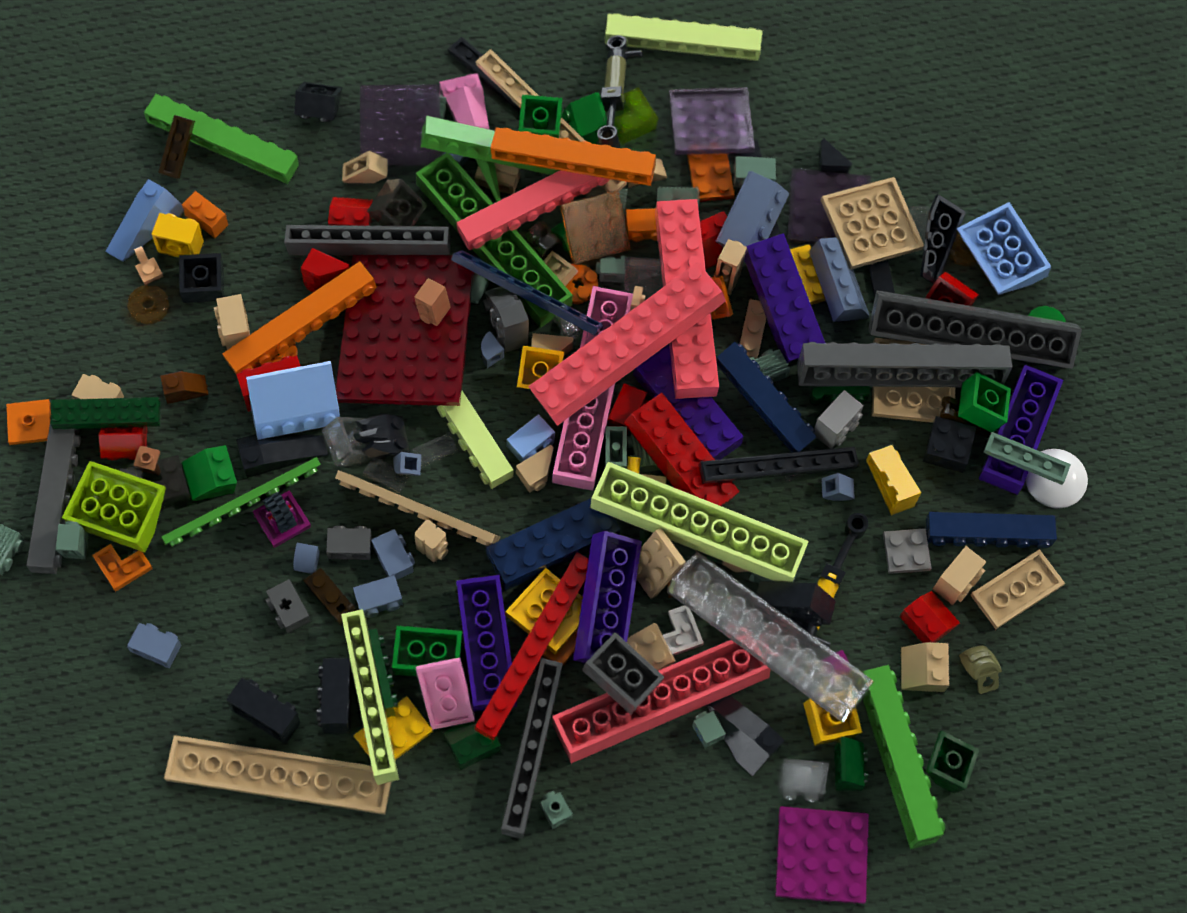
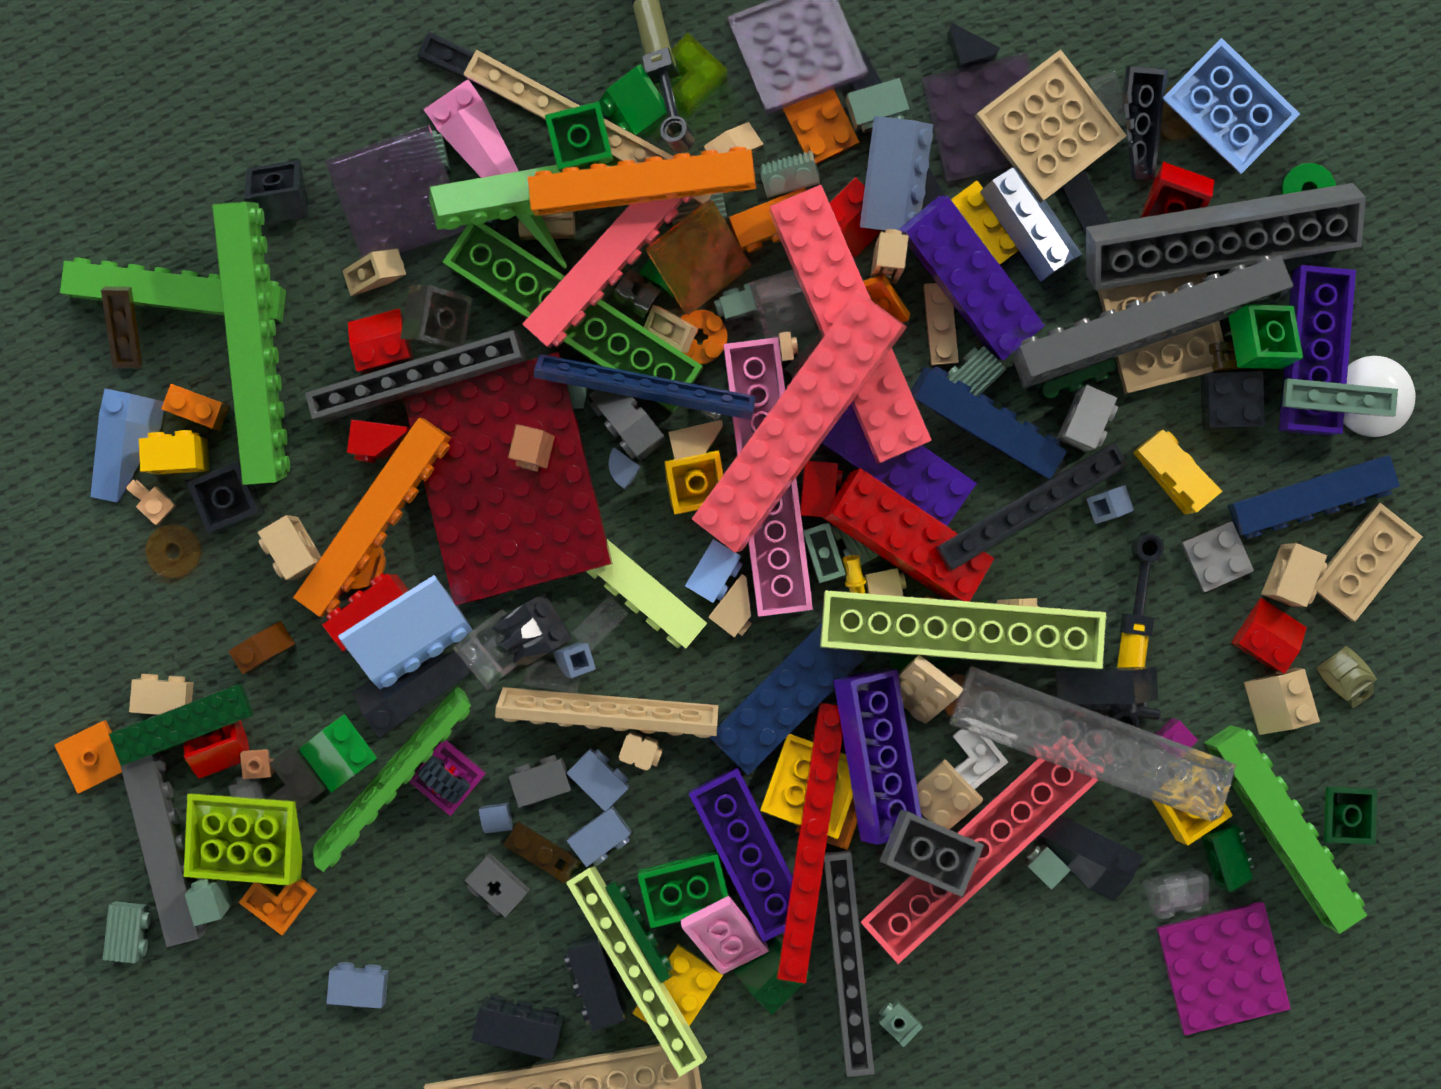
camera: 15 degrees left, 20 degrees up
(262, 180) = (251, 342): none -> bright green brick

